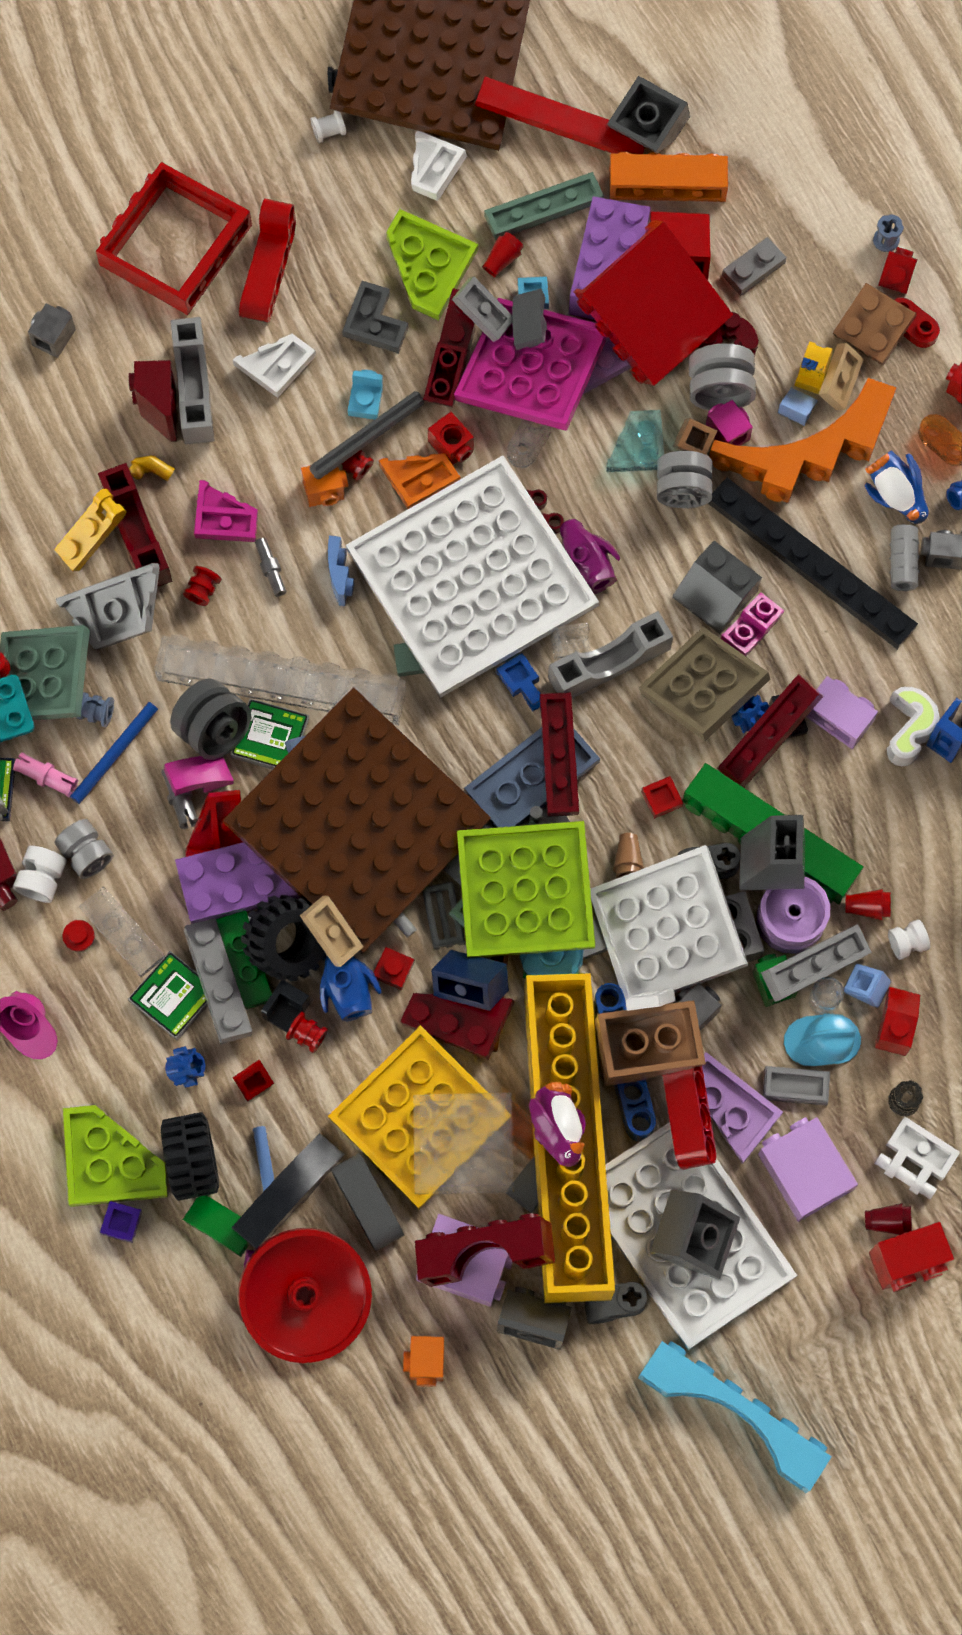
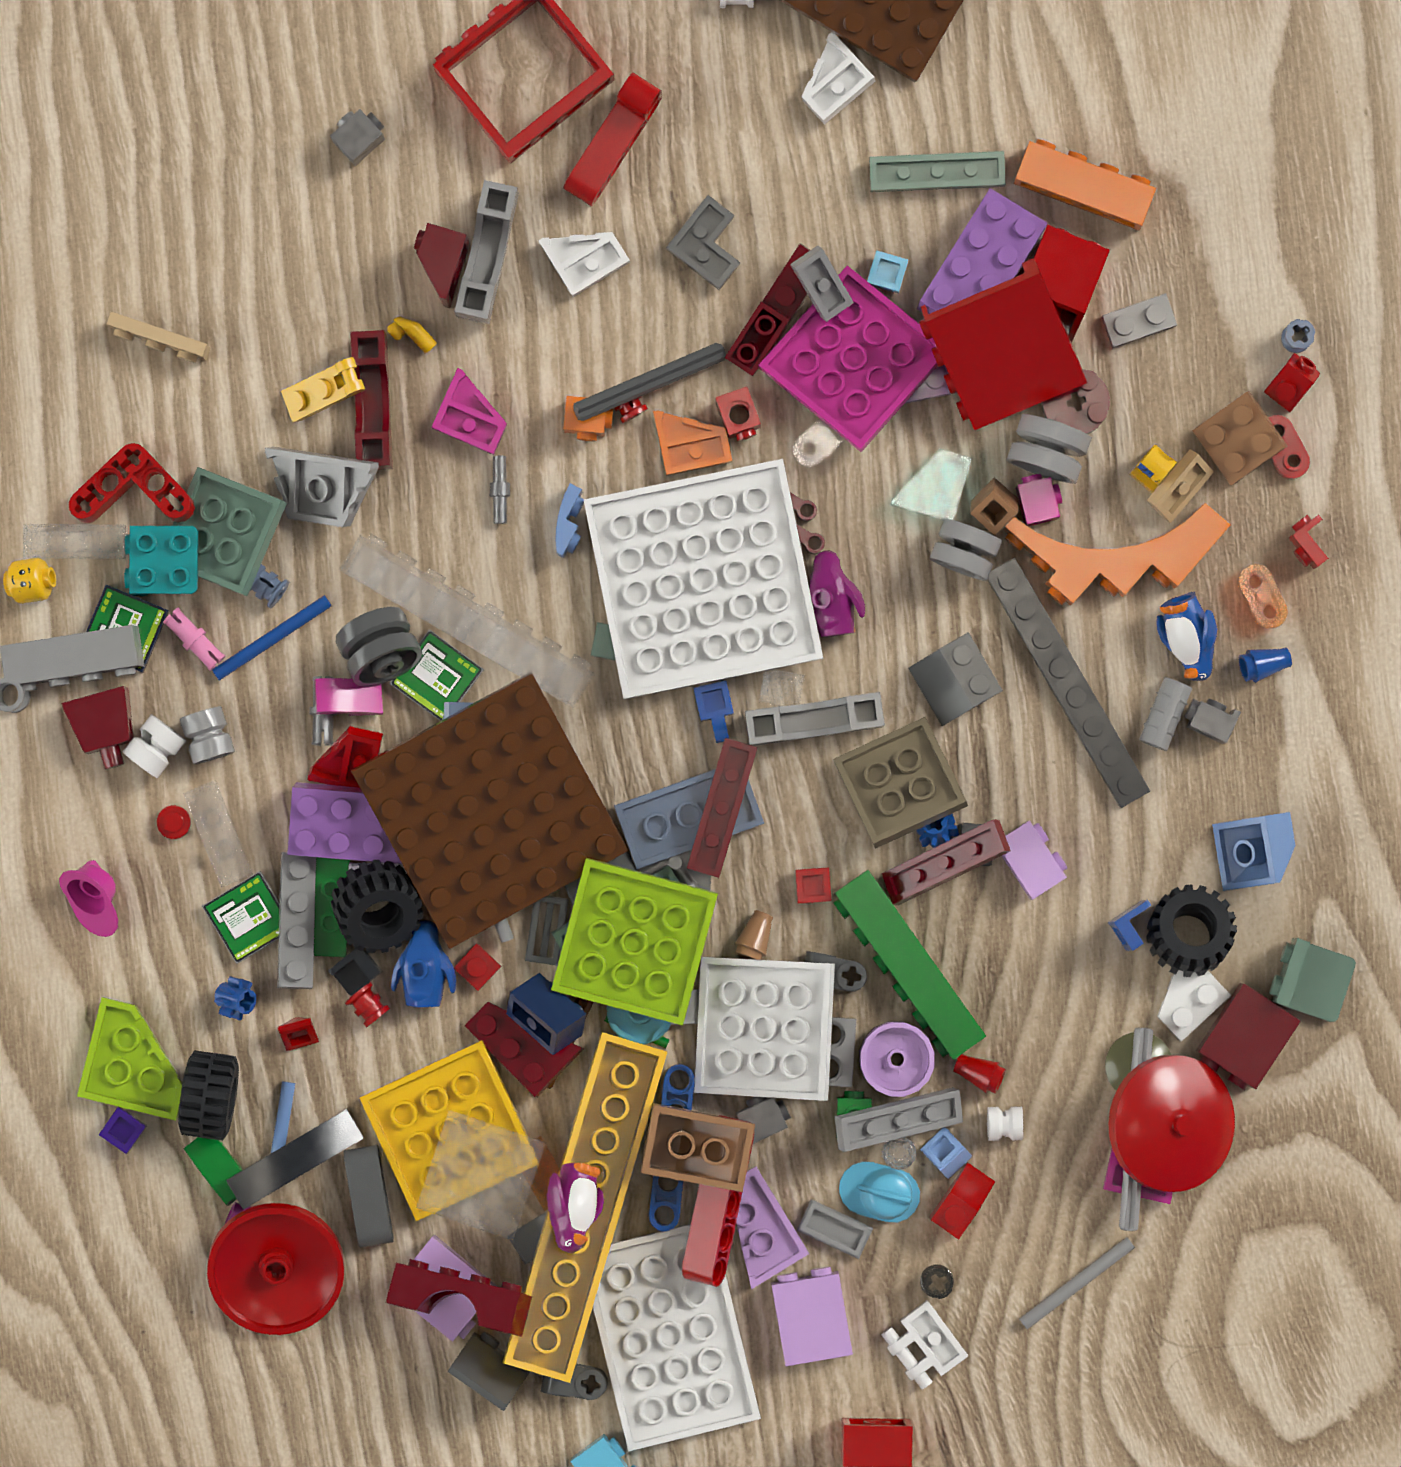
camera: 25 degrees right, 15 degrees up
(201, 585) = (420, 487): red bush -> none
(331, 931) = (422, 921): tan plate -> none
(365, 394) = (666, 328): medium azure bracket -> none
(425, 1360) = (371, 1371): orange brick -> none
(428, 261) = (788, 194): lime plate -> none
(503, 253) = (871, 214): red cone -> none
(528, 319) = (865, 311): dark grey slope -> none
(553, 117) = (994, 75): red tile -> none
(650, 115) = (1088, 110): dark grey slope -> none
(650, 999) = (712, 1108): white tile -> none
(695, 1233) = (674, 1346): dark grey slope -> none
(752, 624) = (977, 731): dark pink slope -> none
(774, 854) = (895, 1000): dark grey slope -> none
(797, 406) = (1122, 500): light blue slope -> none
(890, 1219) = (873, 1395): dark red cone -> none
(924, 716) = (1103, 906): white animal -> none

